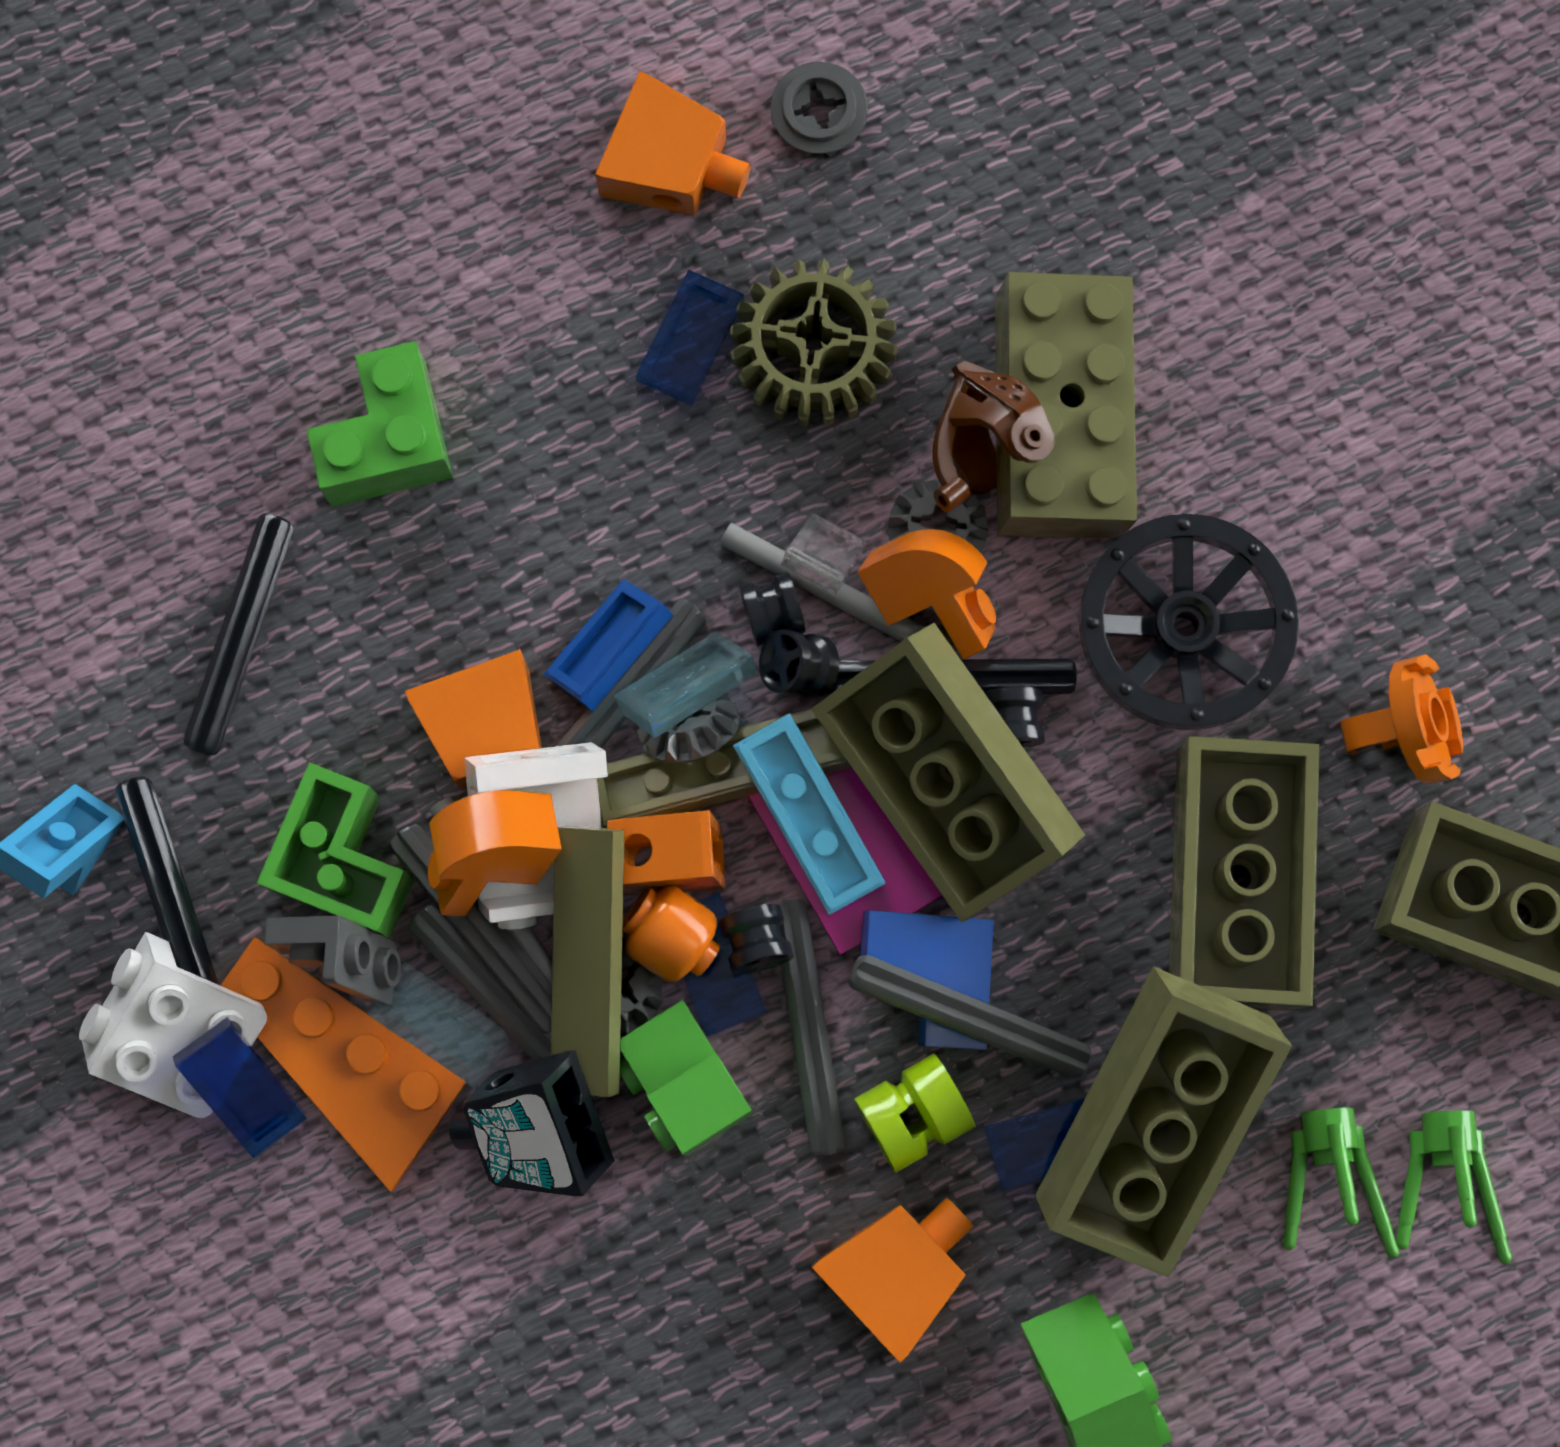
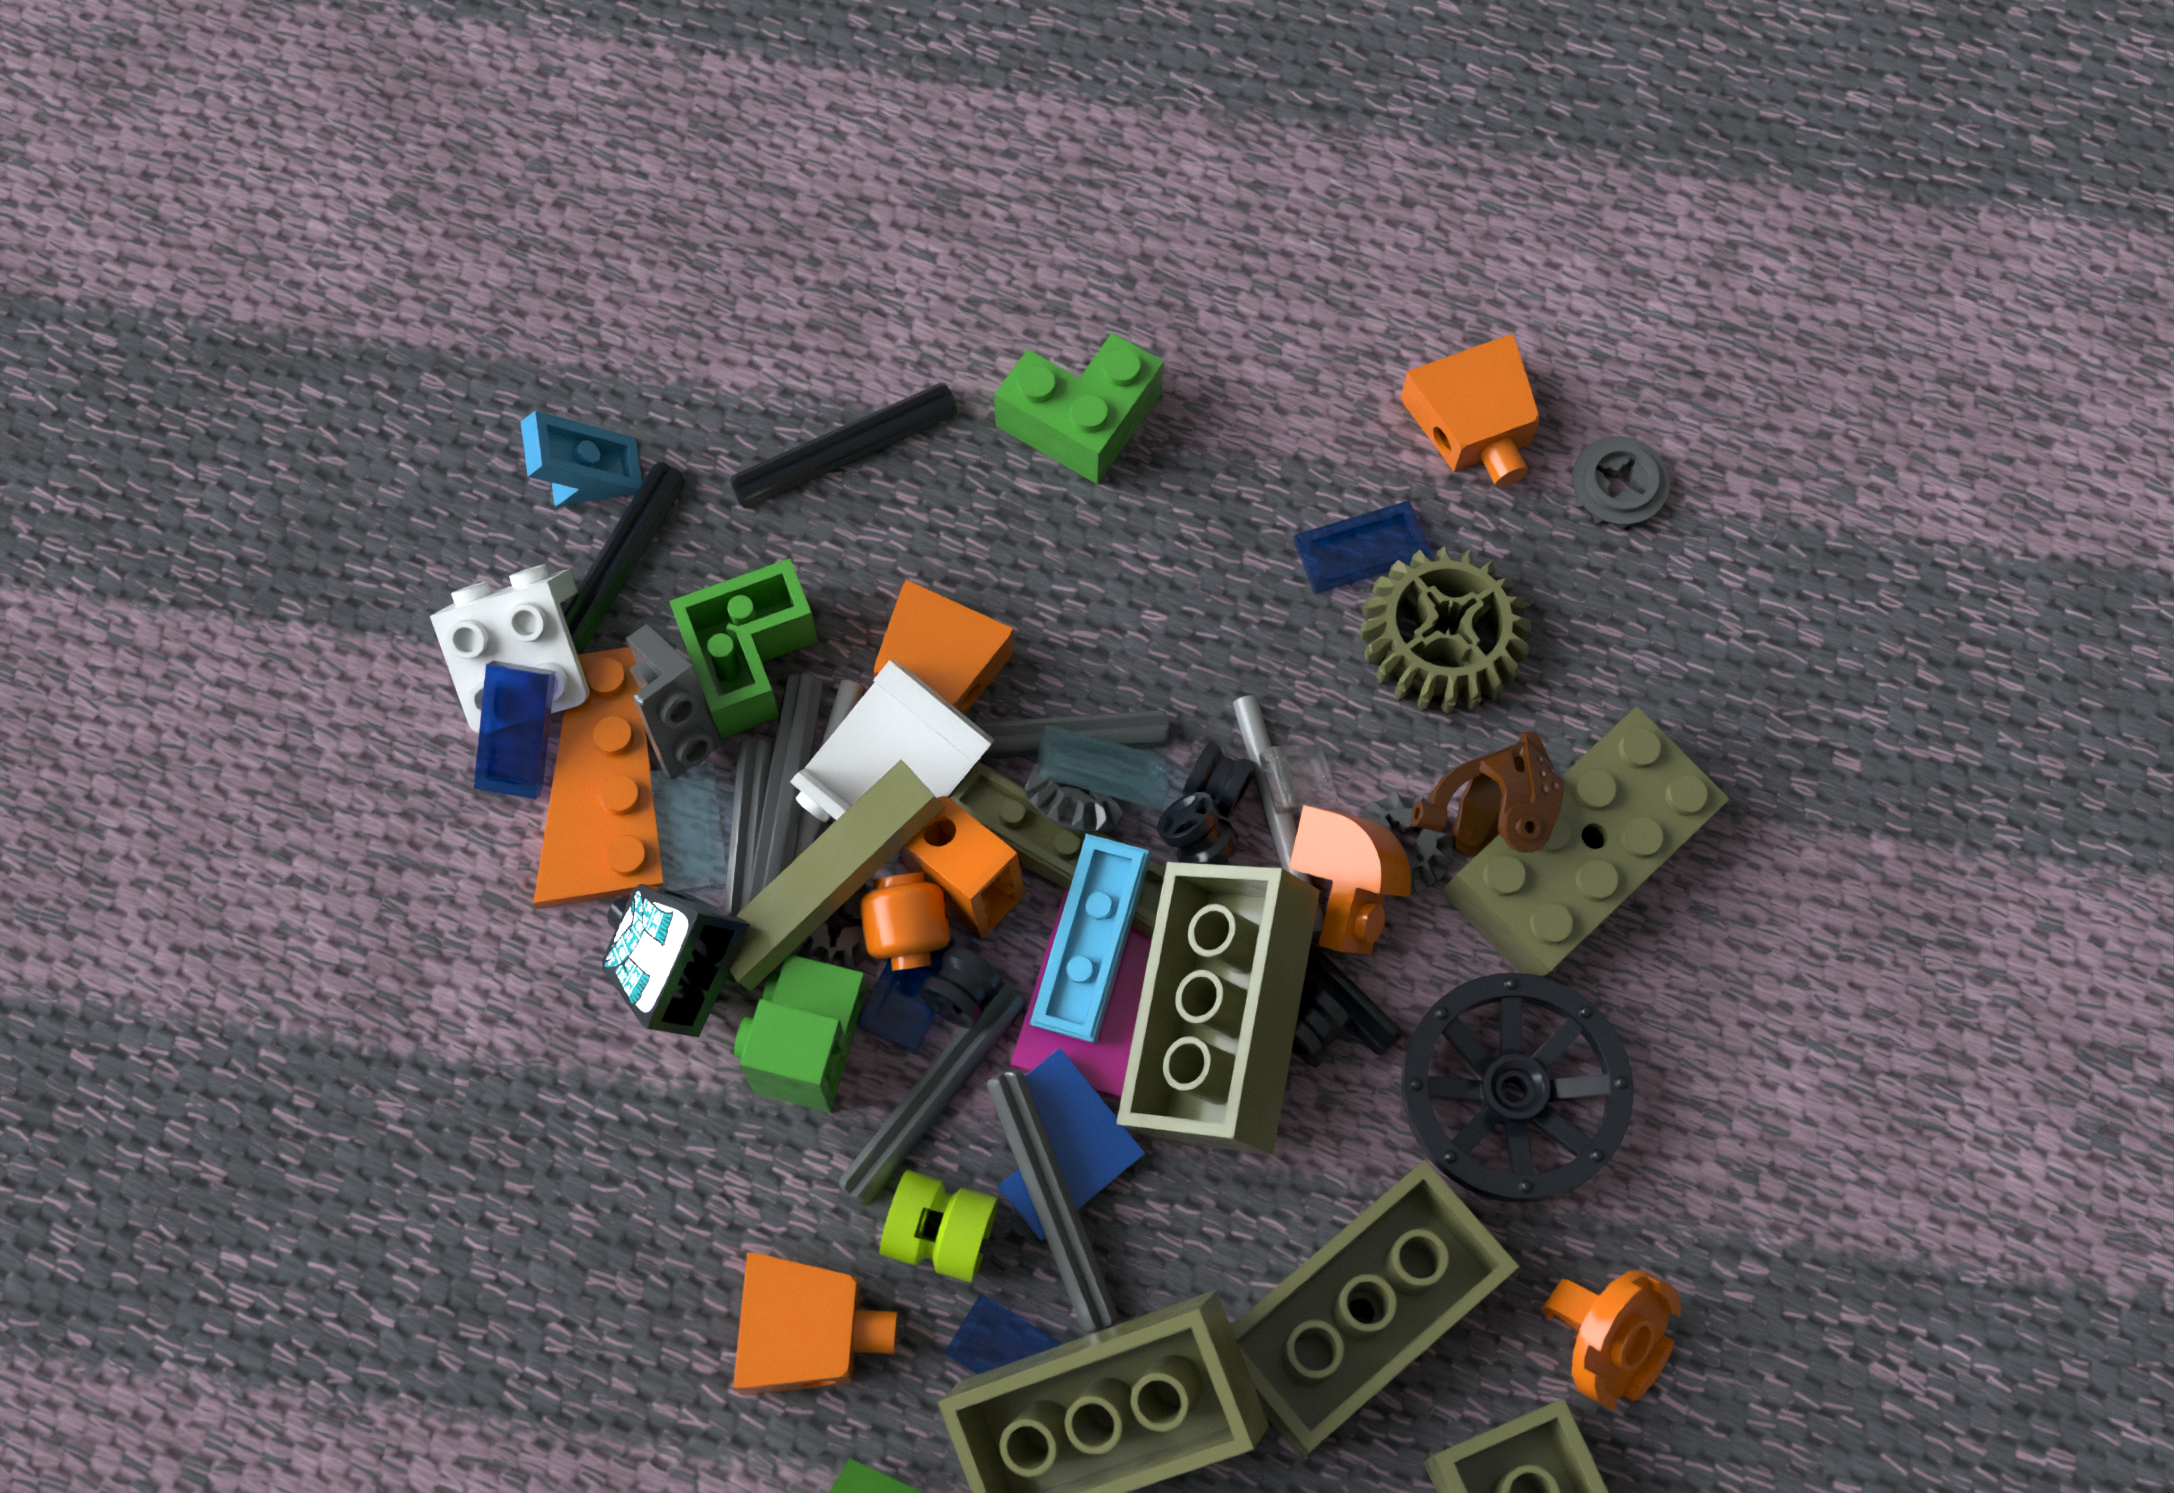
camera: 45 degrees right, 10 degrees down
(490, 839) = (850, 725): orange brick -> none
(608, 645) = (1080, 691): blue tile -> none

